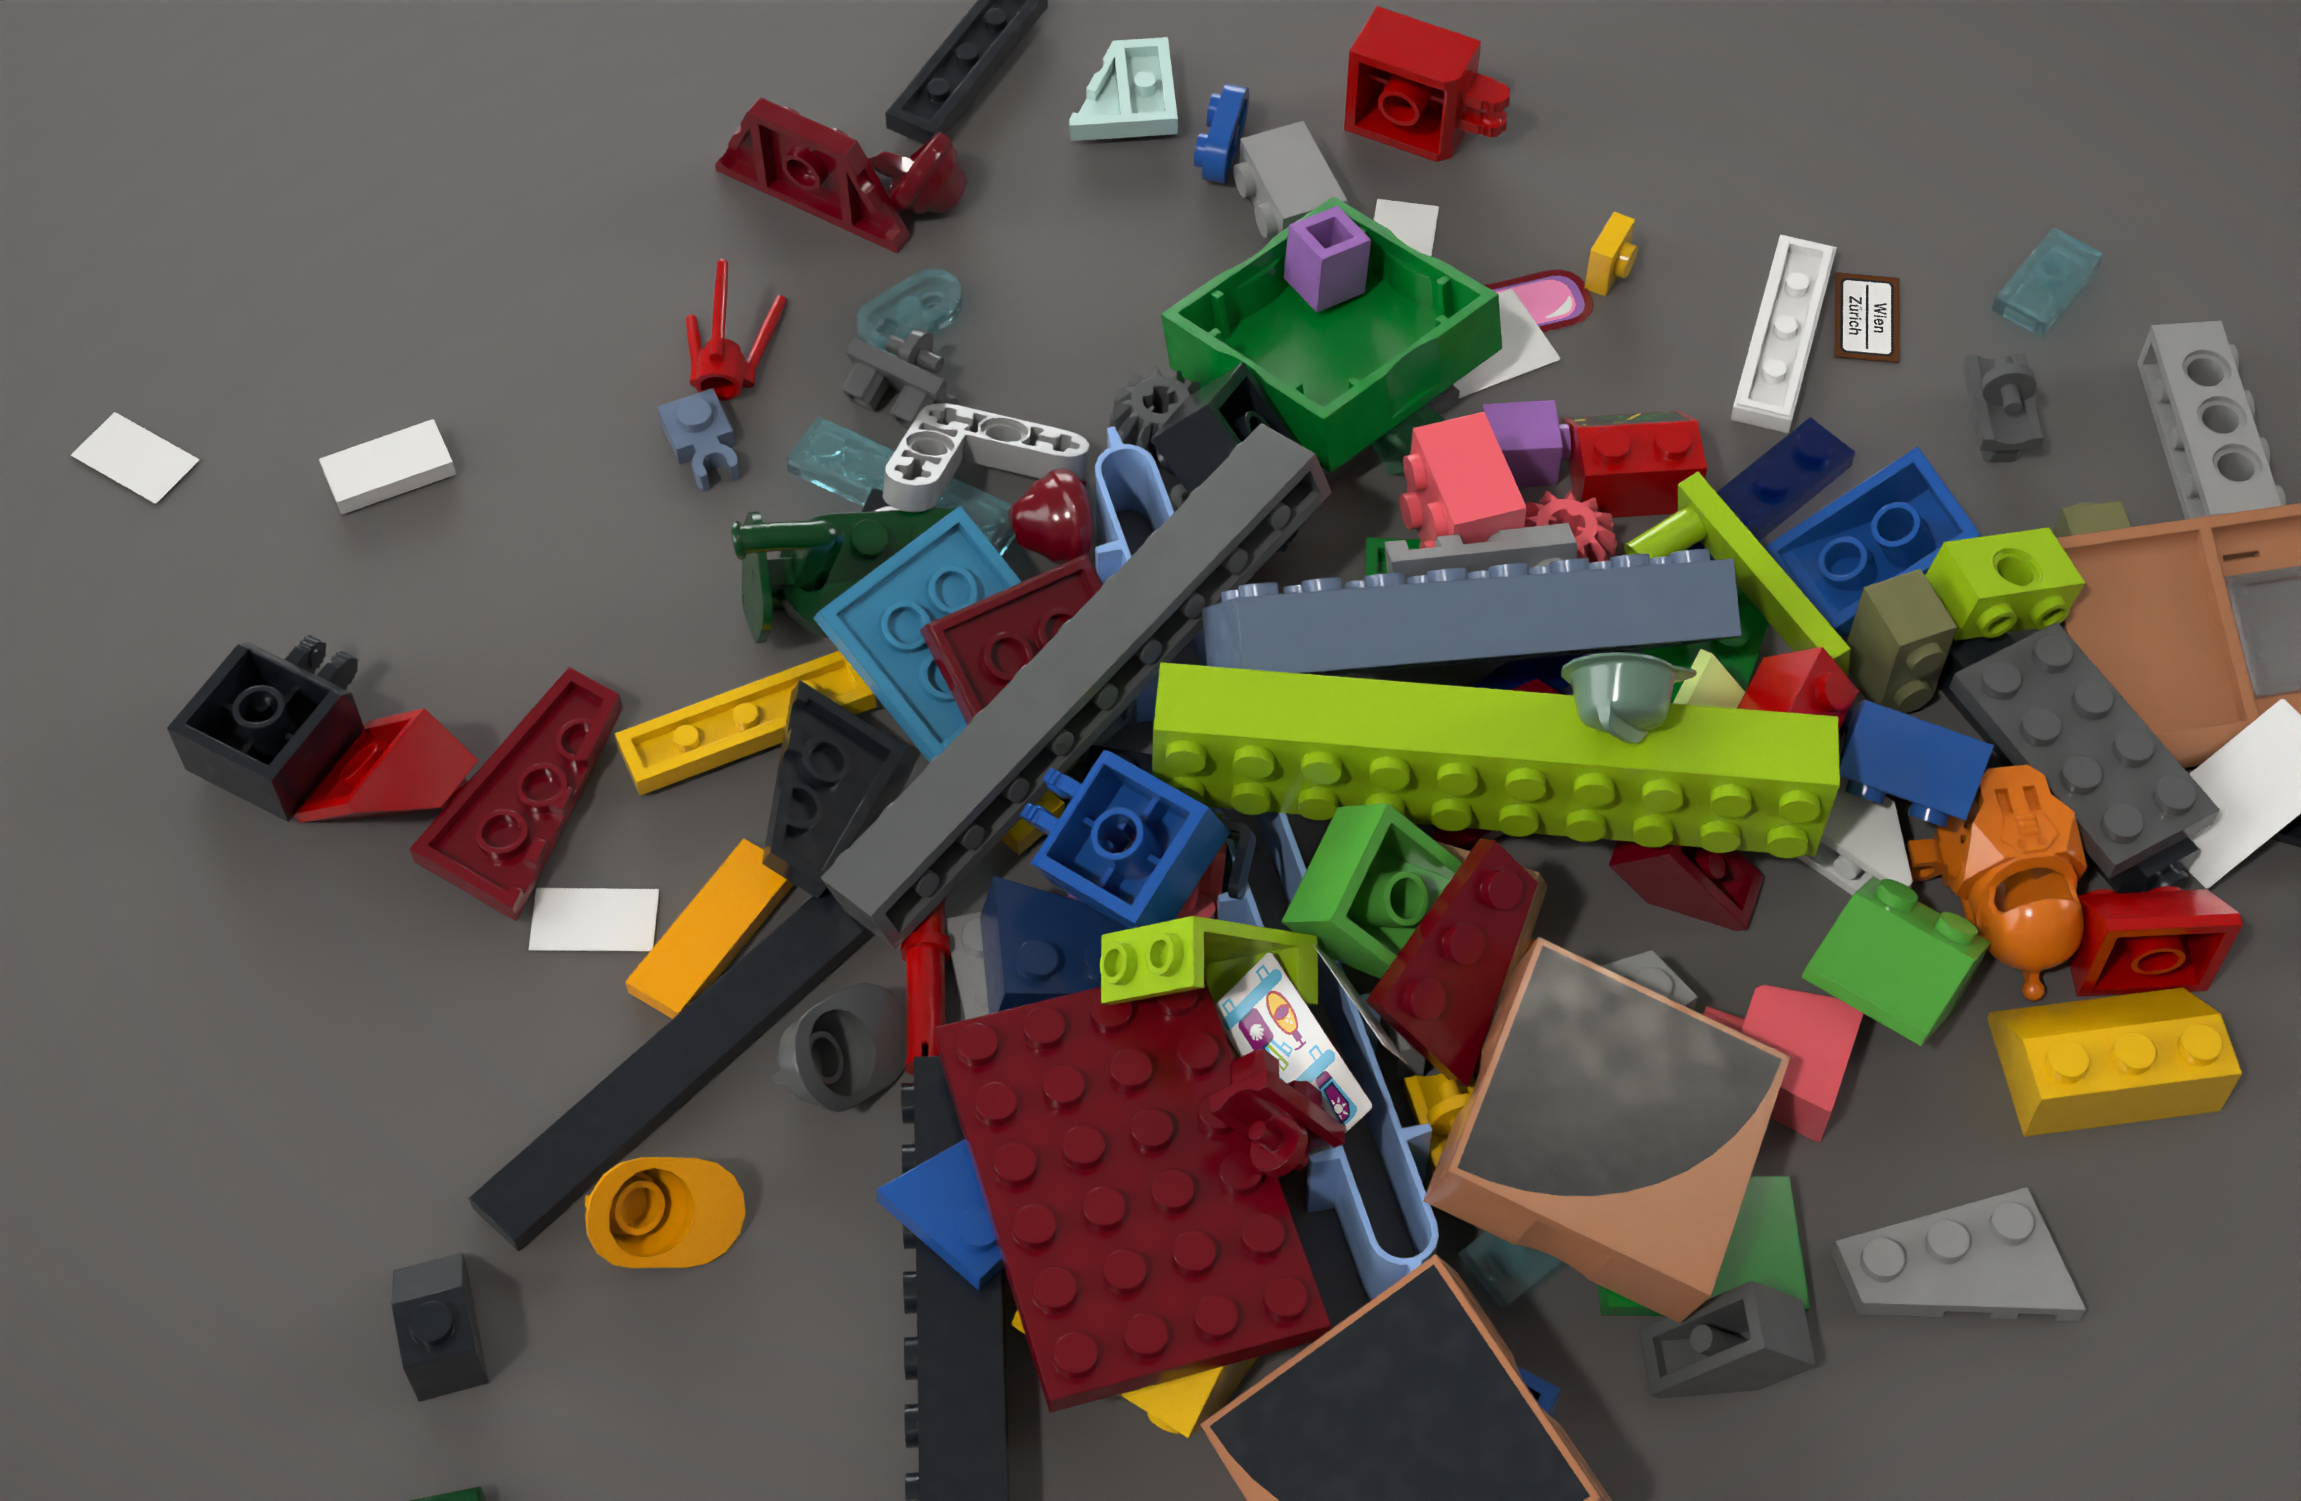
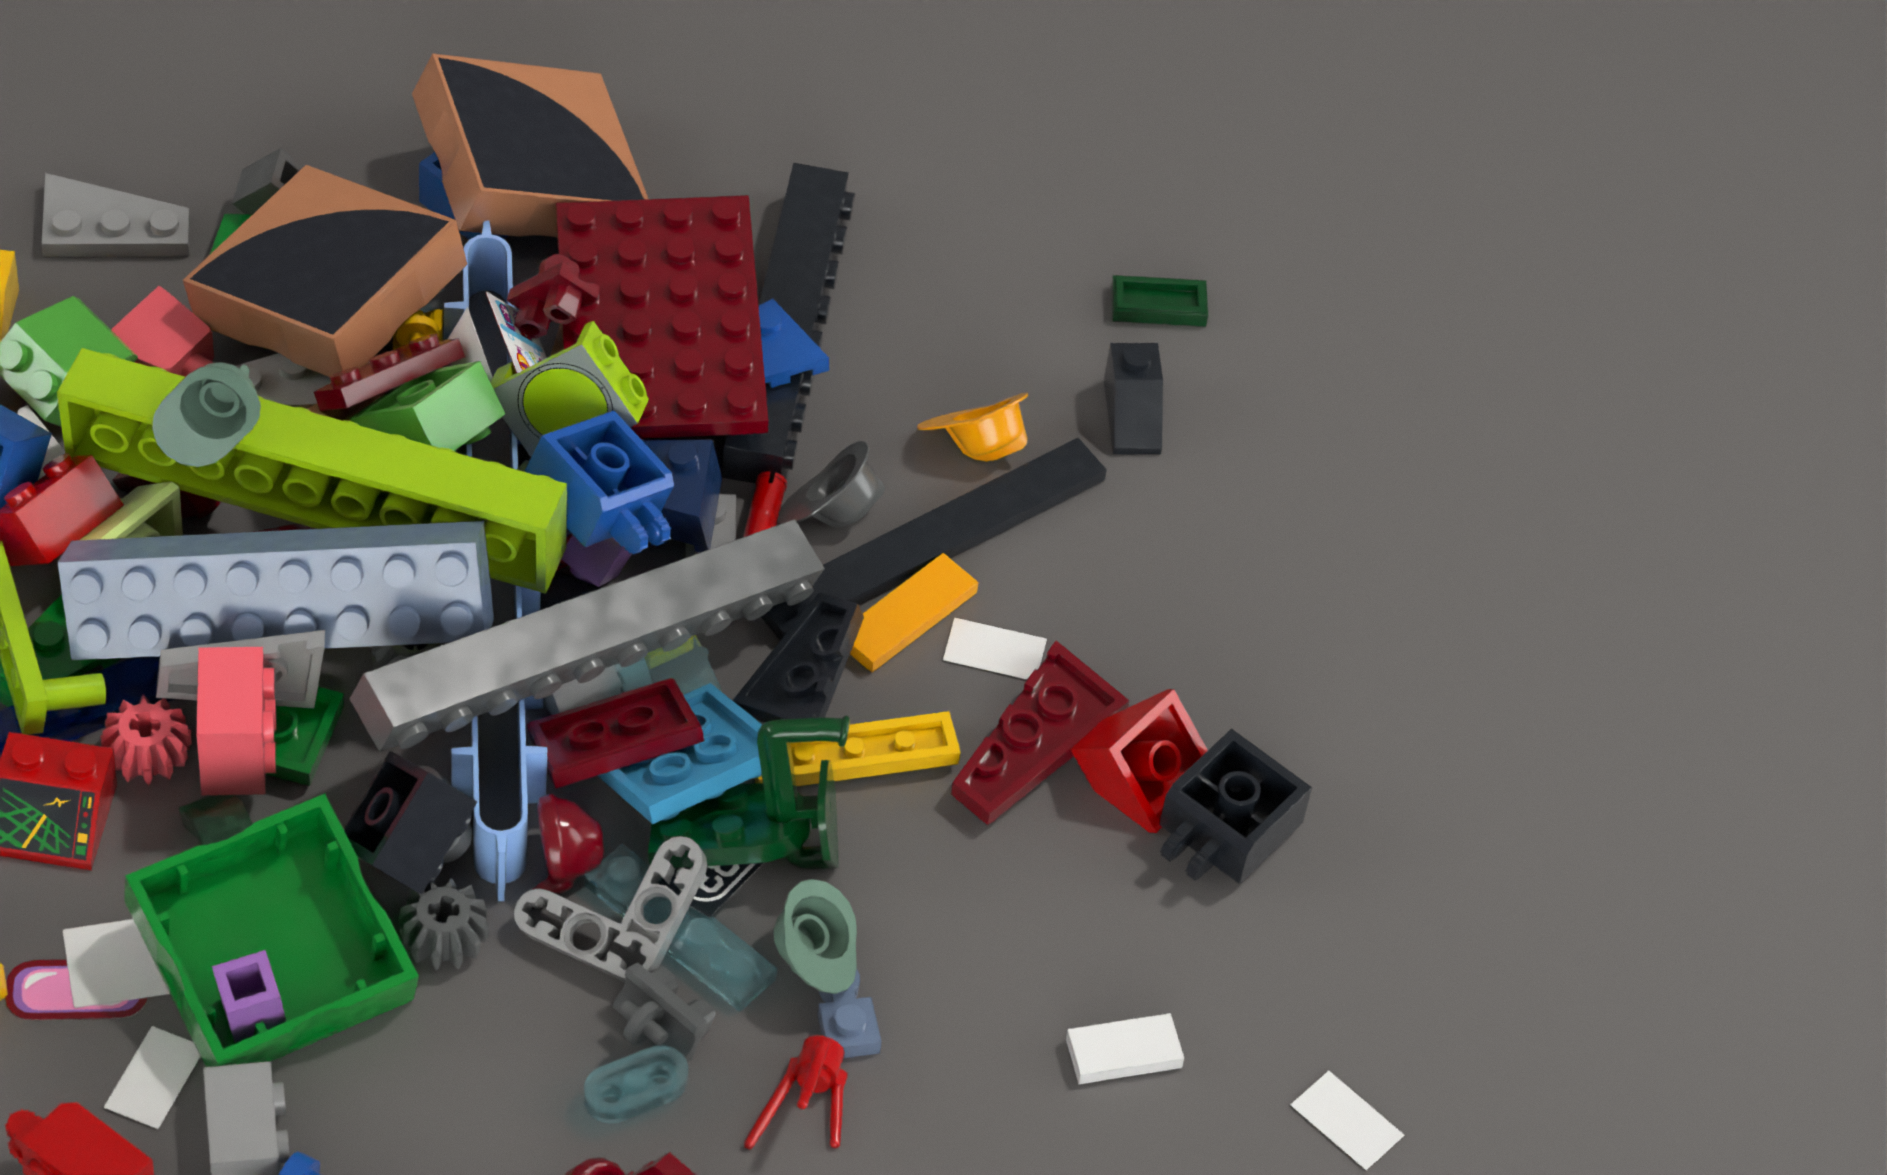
camera: 175 degrees left, 5 degrees down
(744, 465) = (818, 936): none -> sand green piece
(1530, 440) = (140, 828): medium lavender brick -> none

